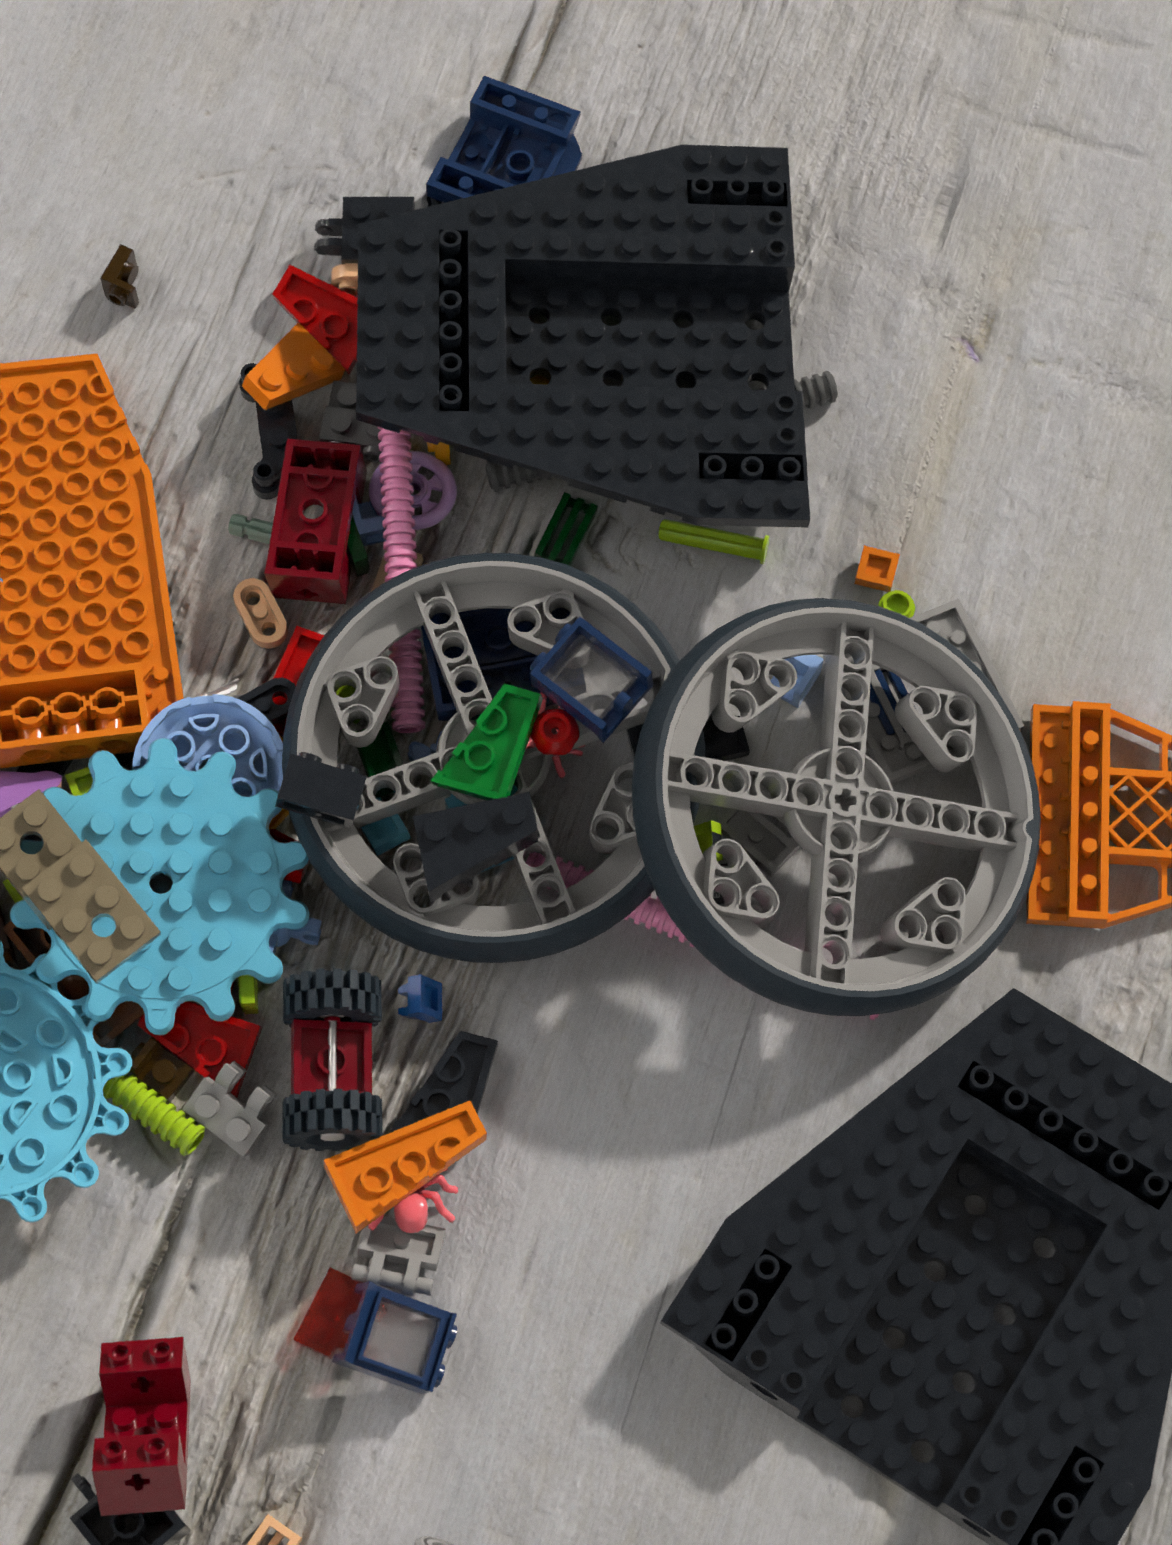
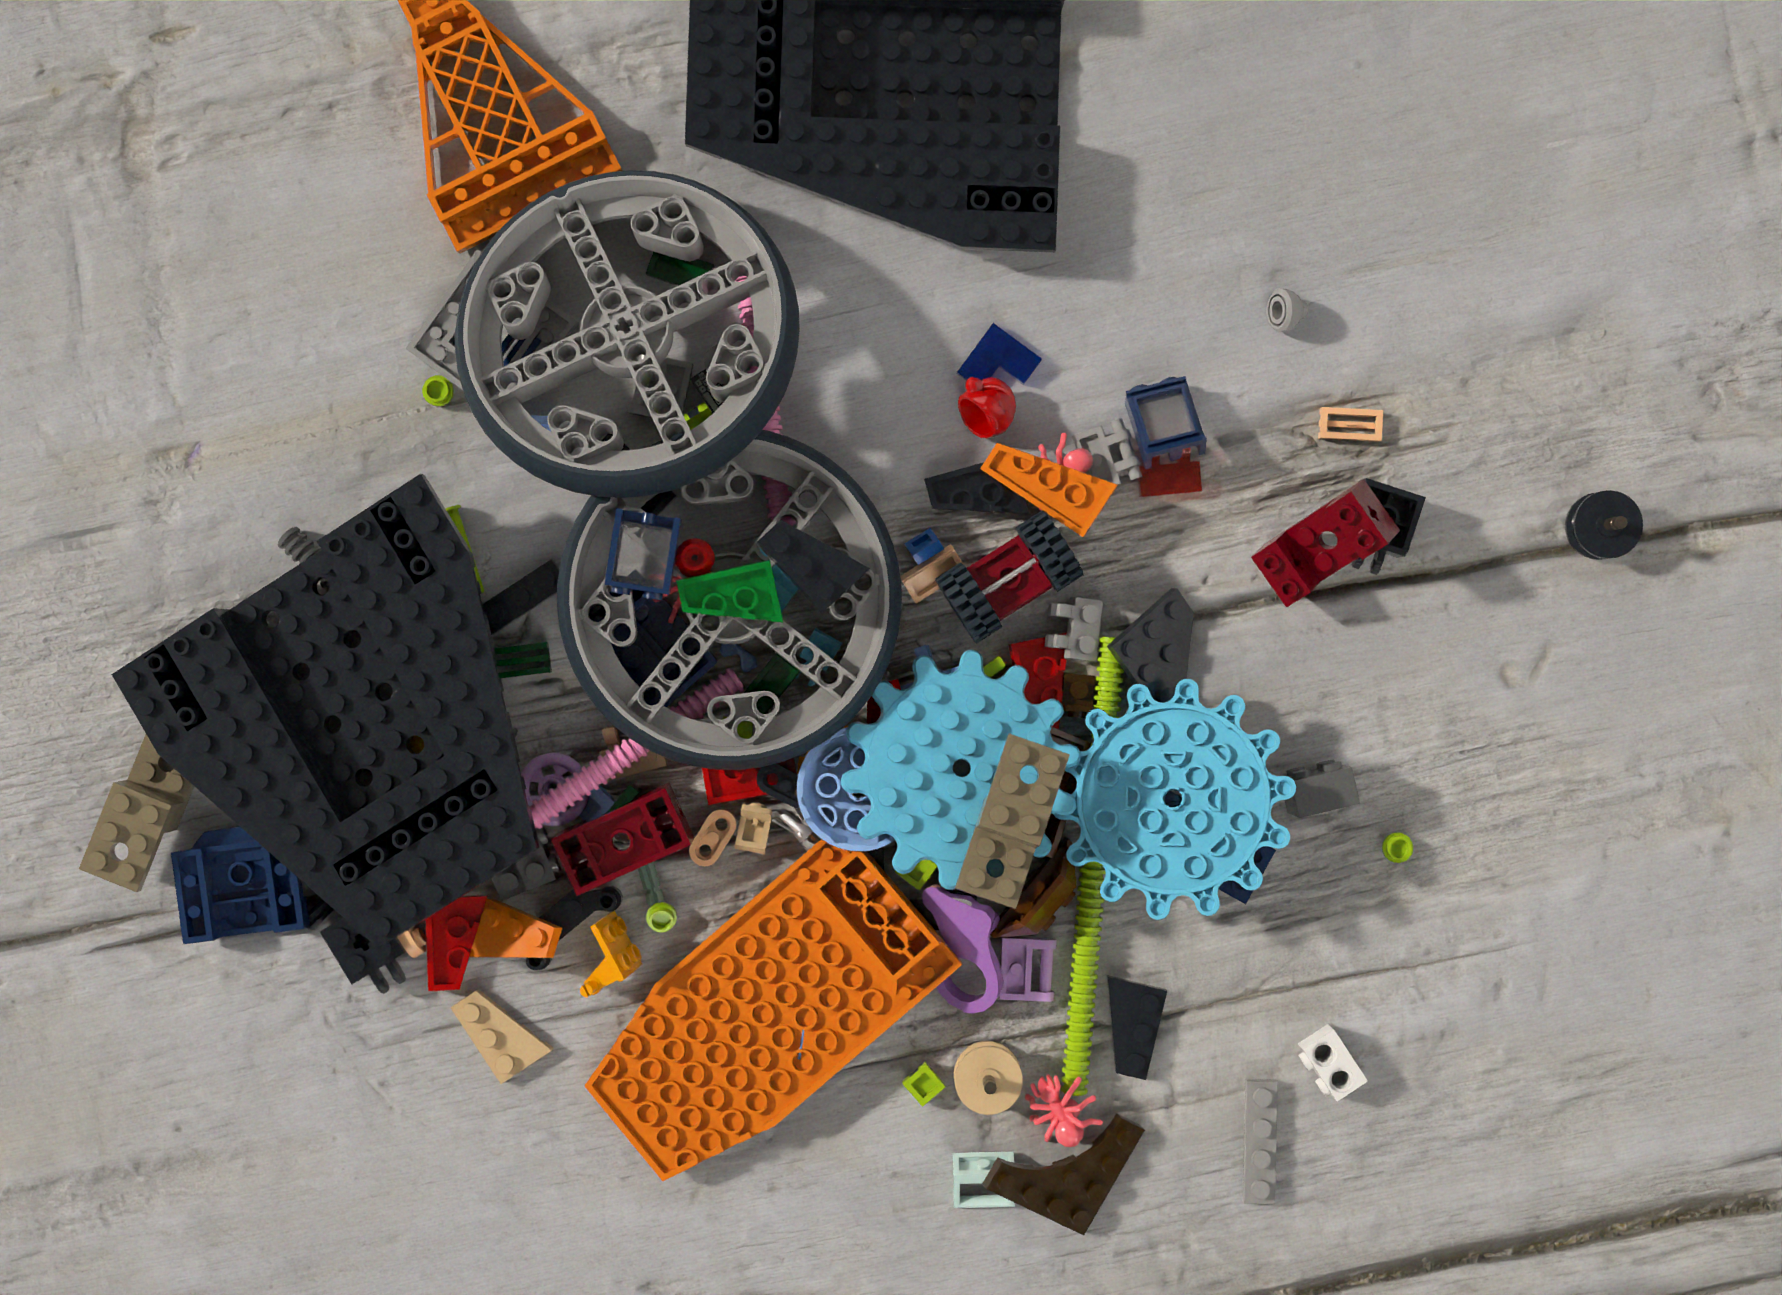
camera: 120 degrees left, 20 degrees up
(120, 276) = (509, 1112): dark brown bracket -> none
(153, 1183) = (1157, 646): none -> black plate
(197, 306) = (498, 1036): none -> tan wing
(209, 453) = (621, 955): none -> light orange plate
(213, 518) = (661, 917): none -> lime plate
(241, 656) = (753, 828): none -> tan bracket
(321, 789) = (839, 691): black brick -> none
(393, 972) = (921, 579): none -> light nougat tile
(534, 1155) = (987, 406): none -> red piece
(591, 1205) = (1002, 351): none -> clear blue plate
(630, 560) = (522, 596): none -> black plate
(635, 101) = (137, 816): none -> dark tan bracket
(868, 923) = (676, 270): none -> dark green tile
(877, 569) = (415, 420): orange plate -> none

